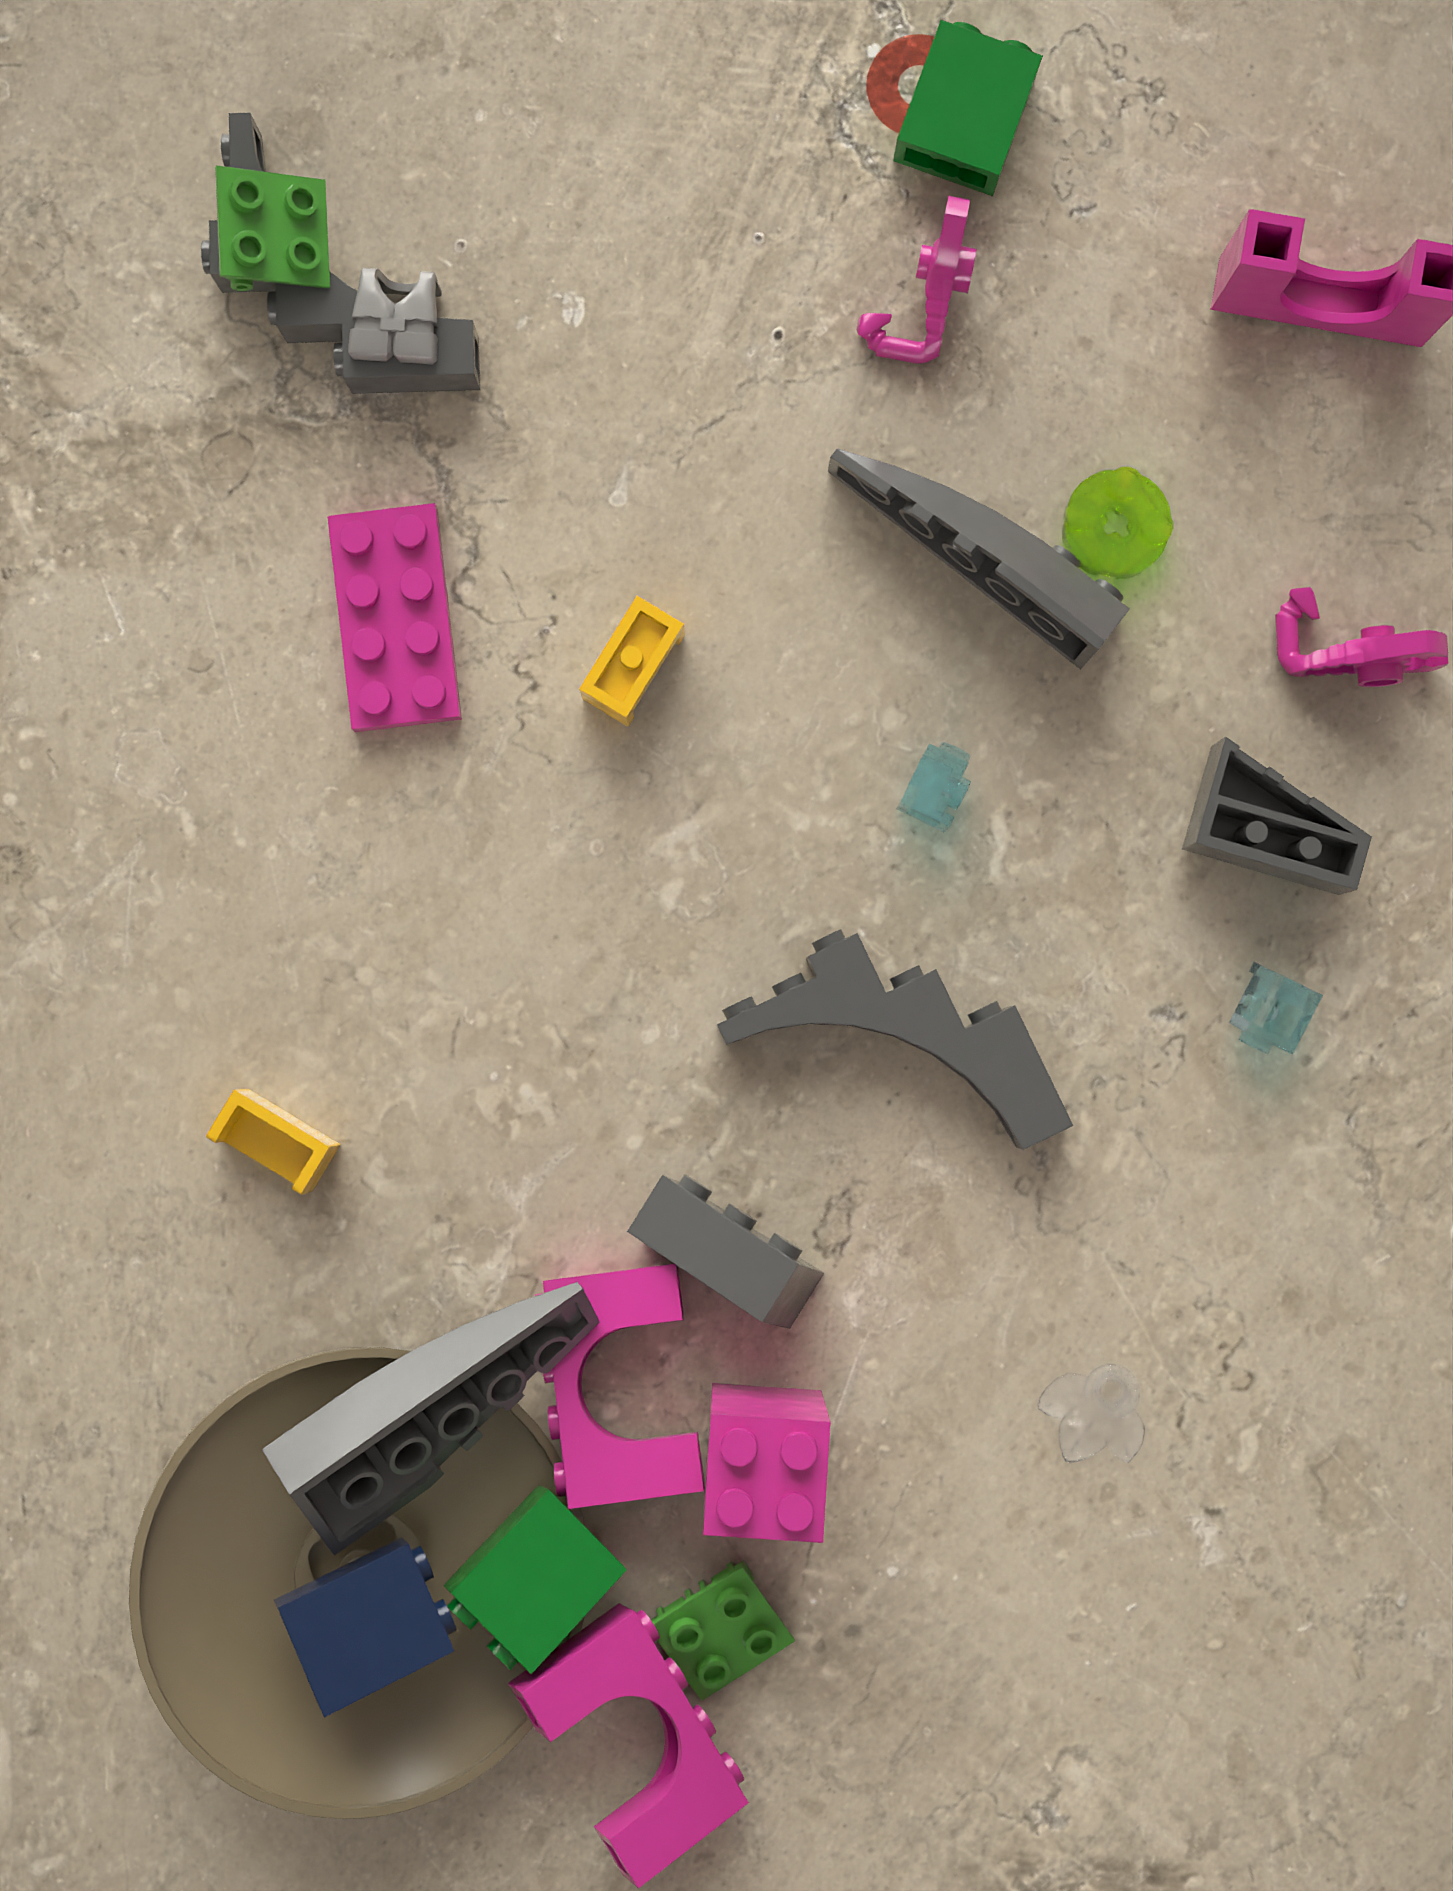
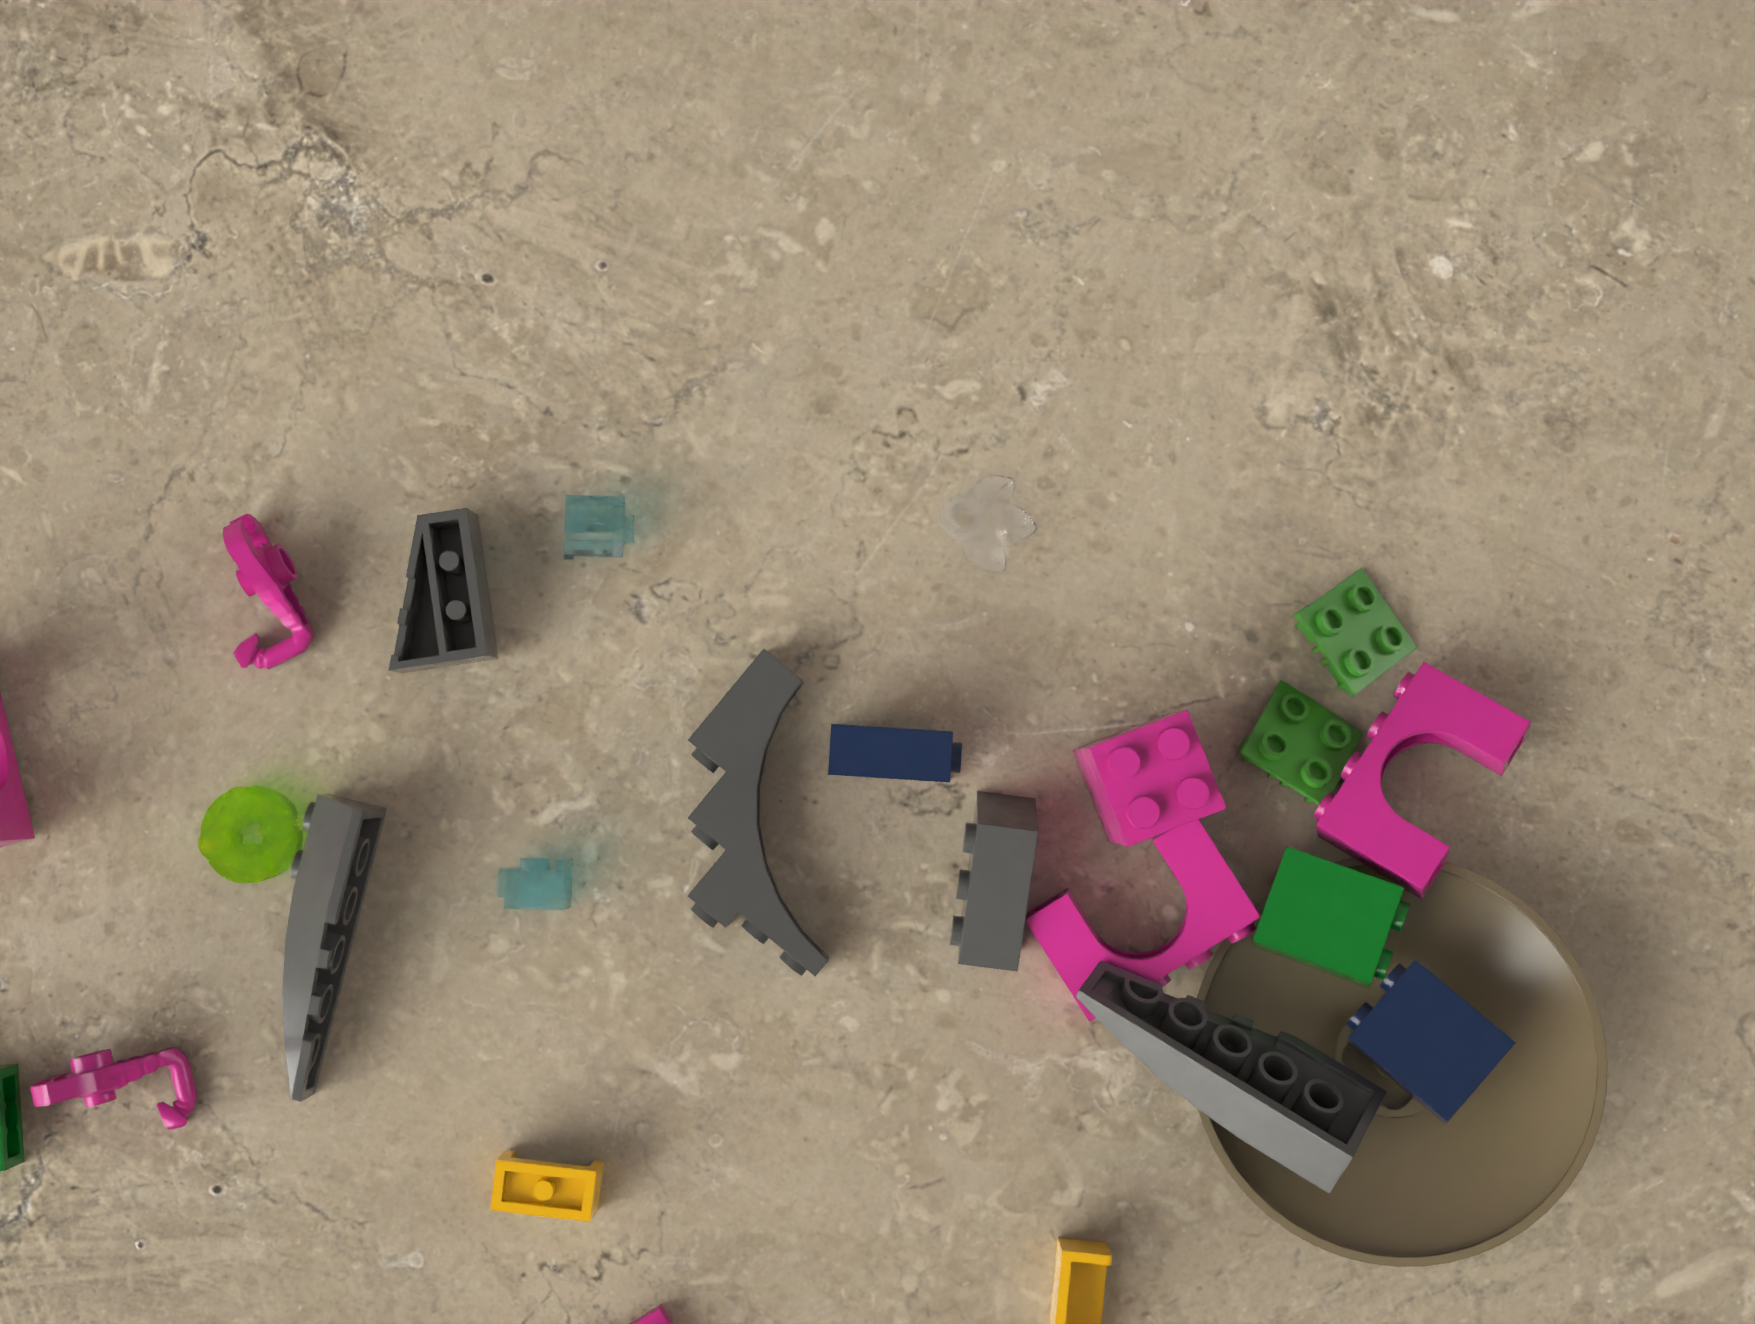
camera: 110 degrees left, 0 degrees up
(809, 1742) = (1354, 632): none -> bright green hinge
(905, 1209) = (893, 753): none -> dark blue brick

